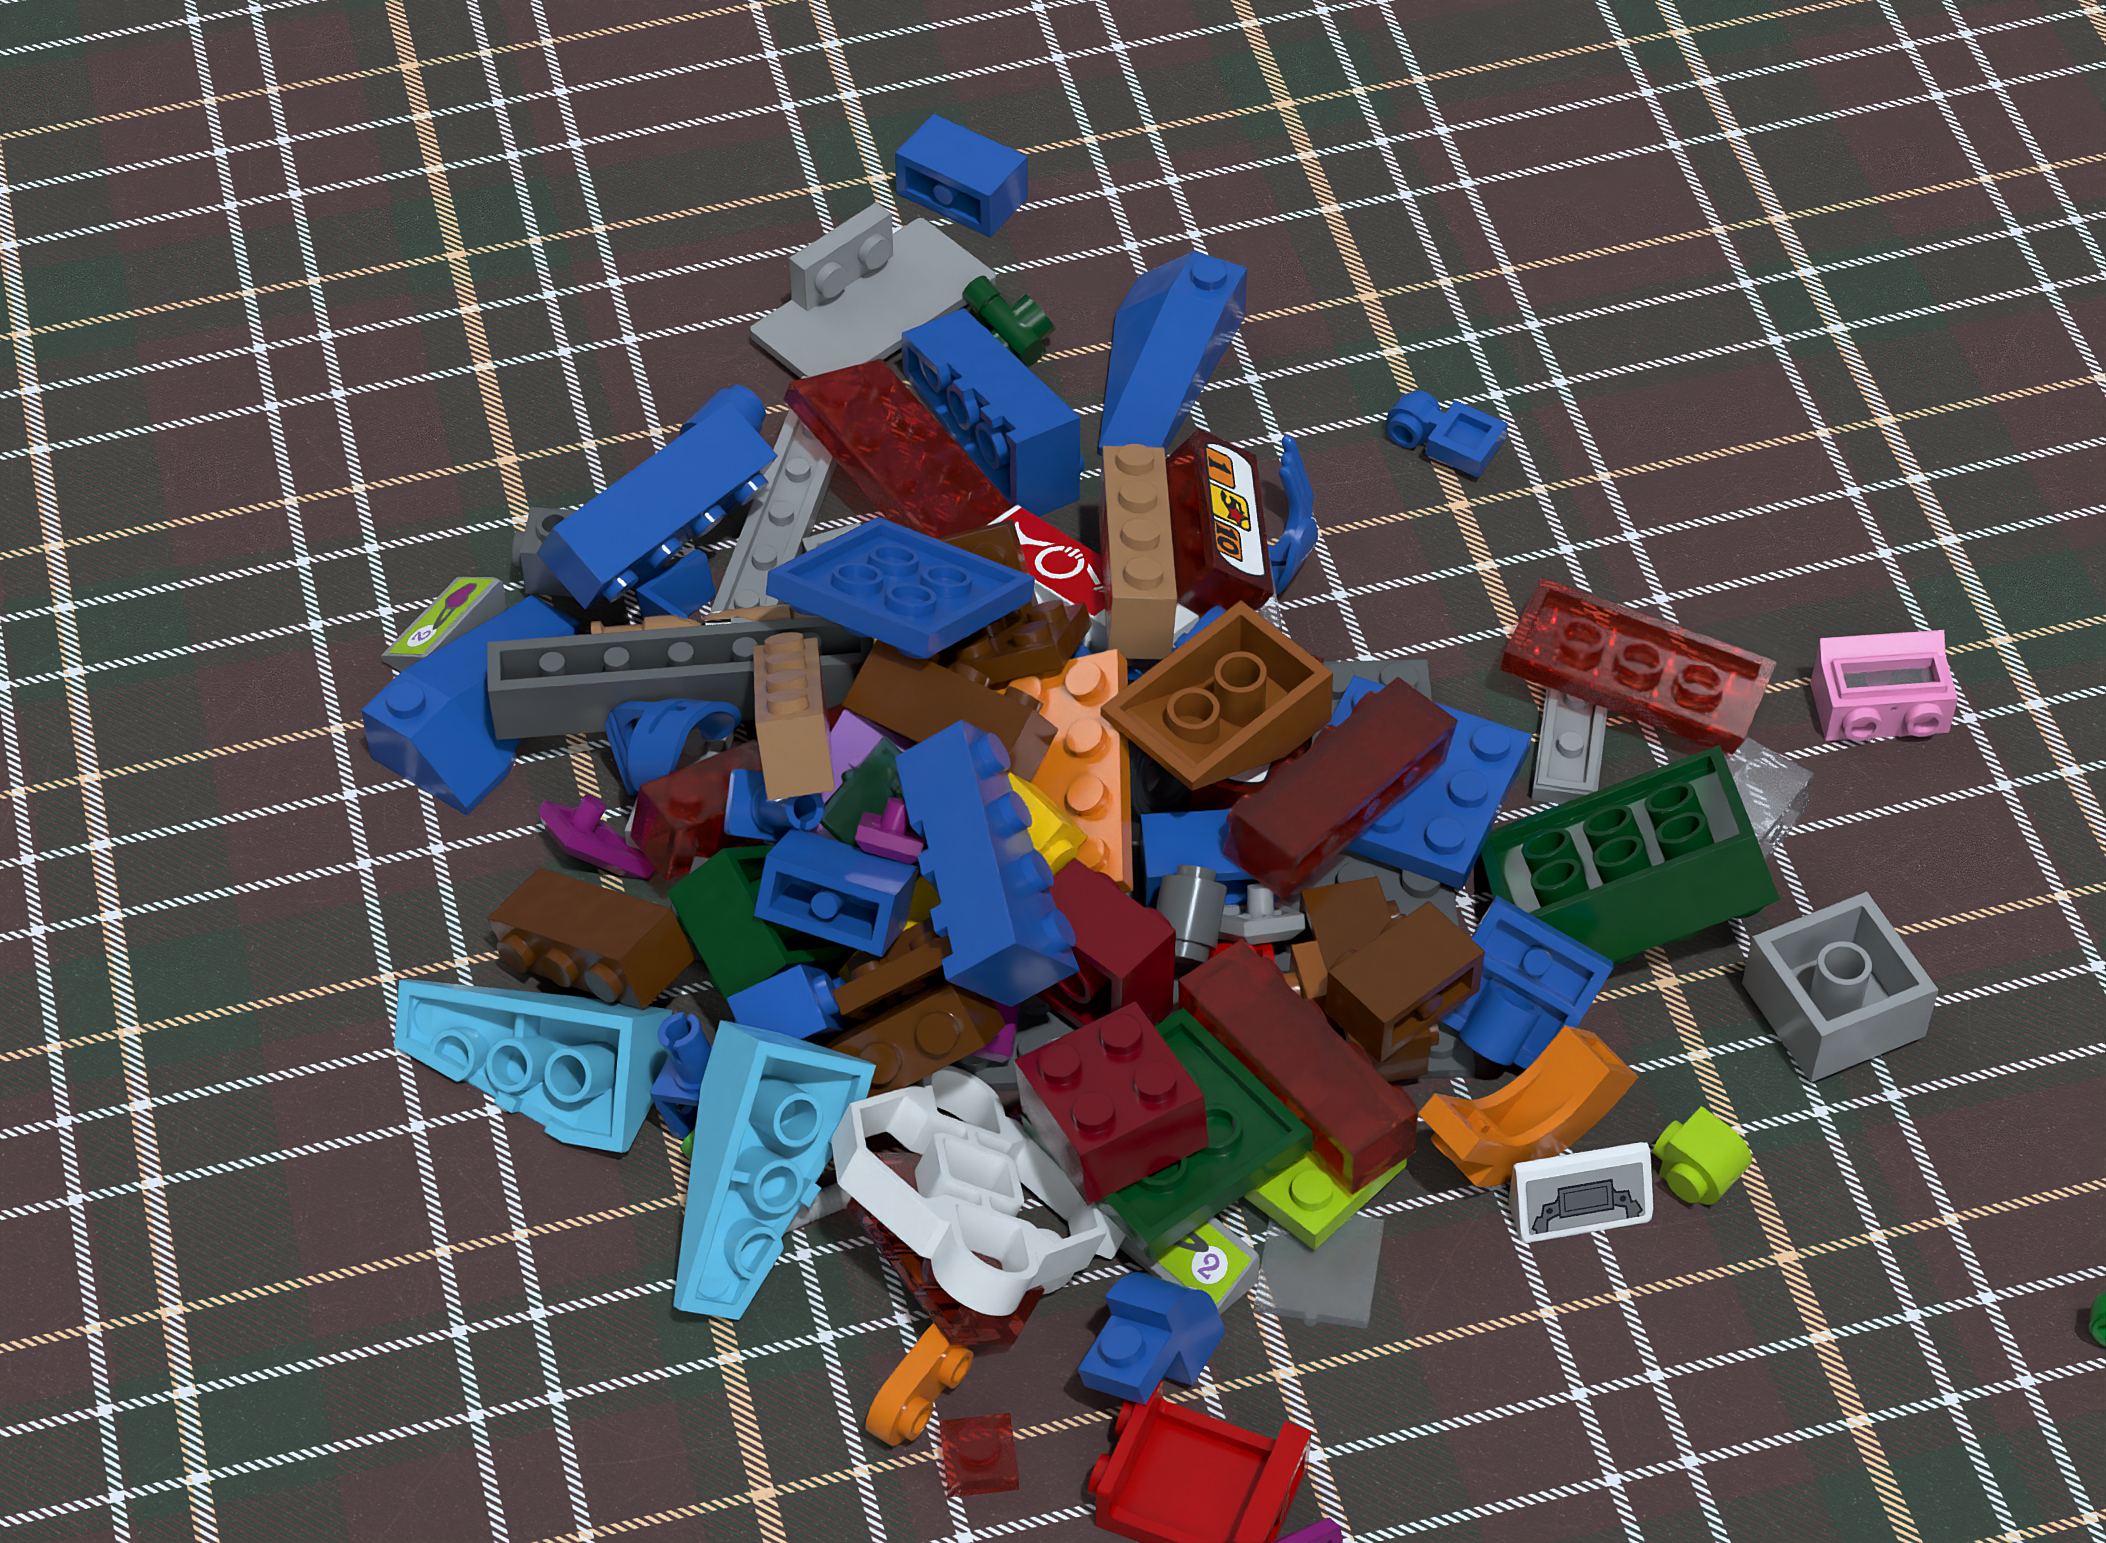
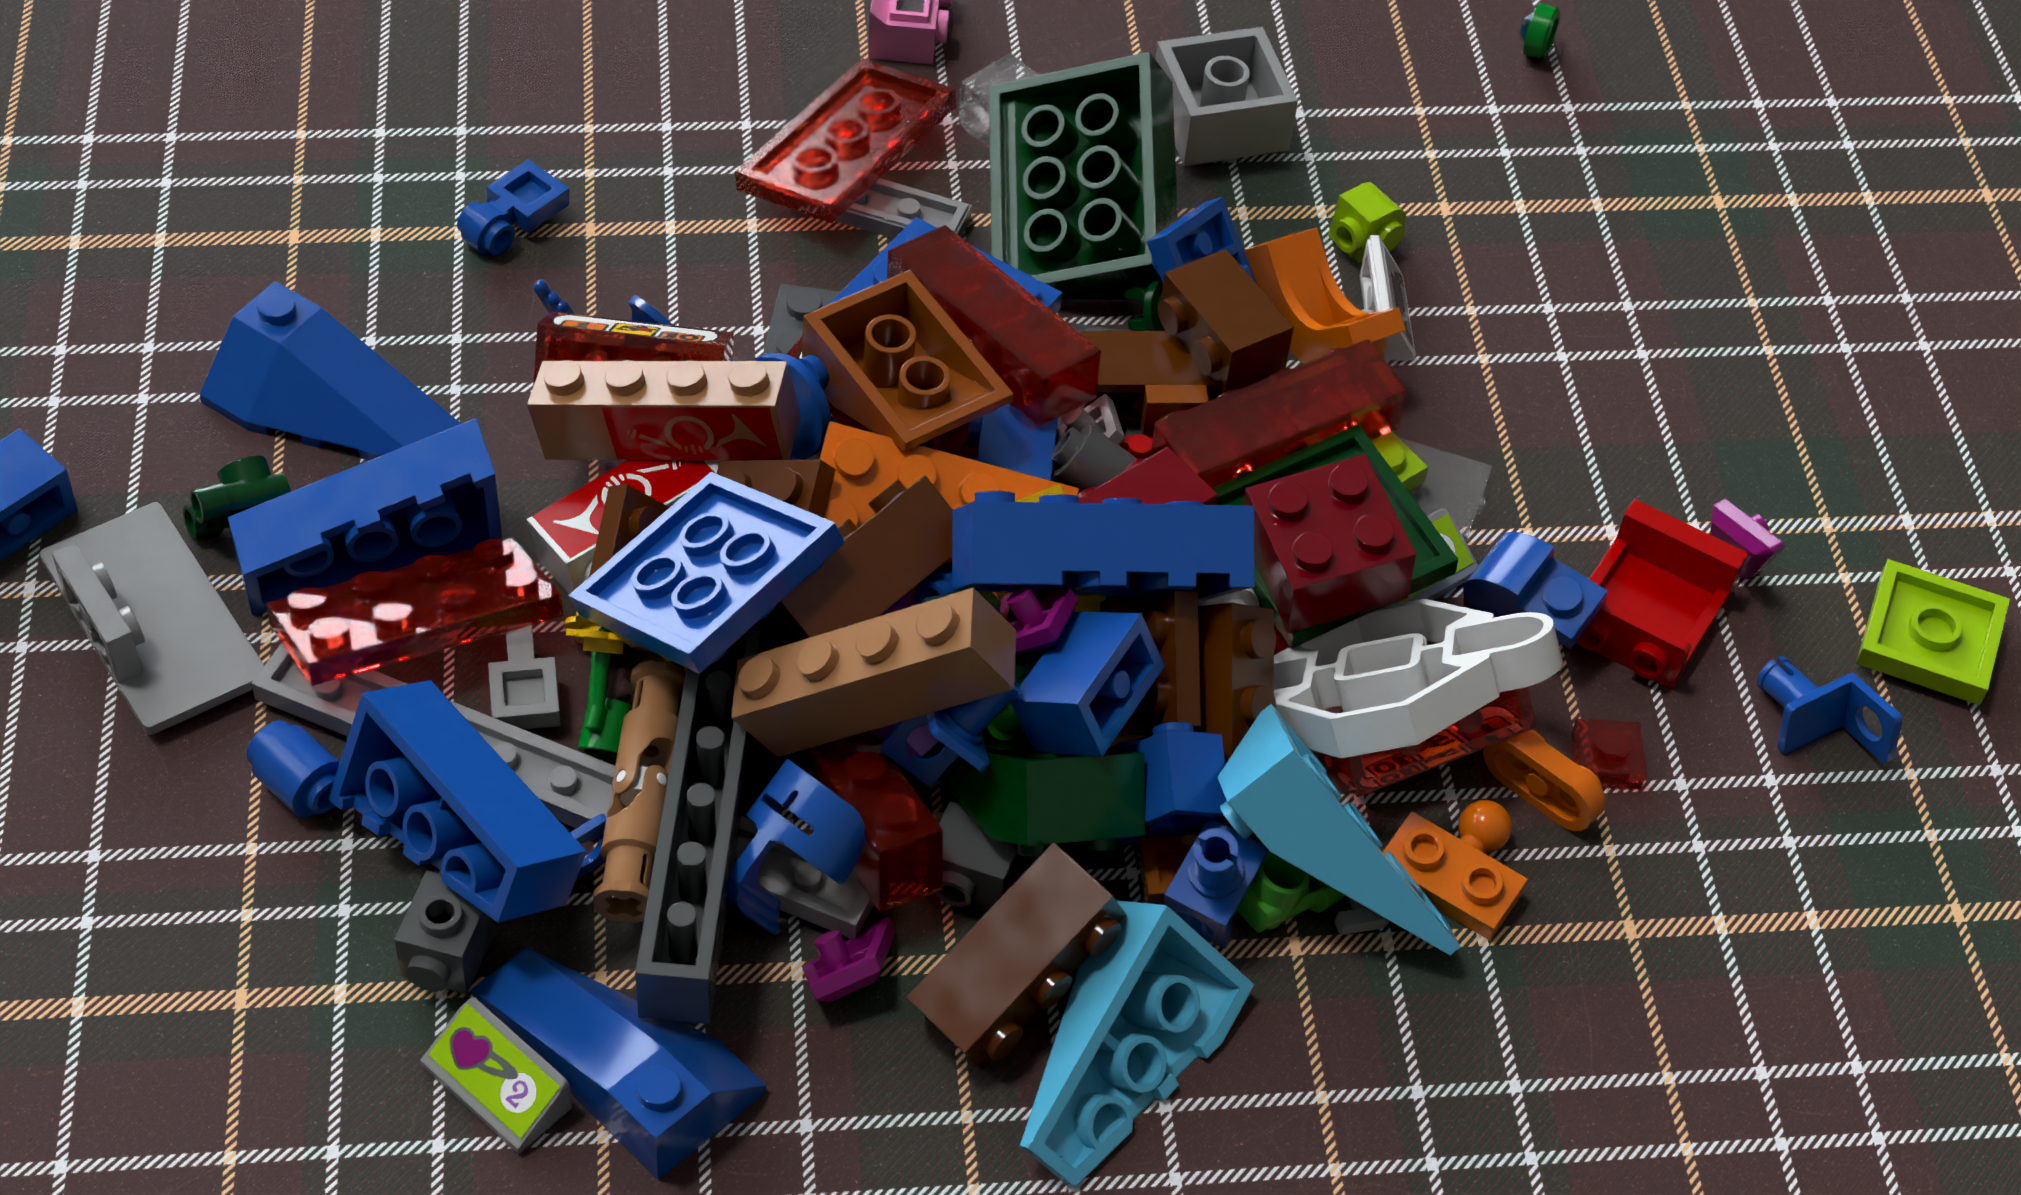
camera: 85 degrees left, 0 degrees up
(793, 1311) = (1457, 871): none -> orange plate

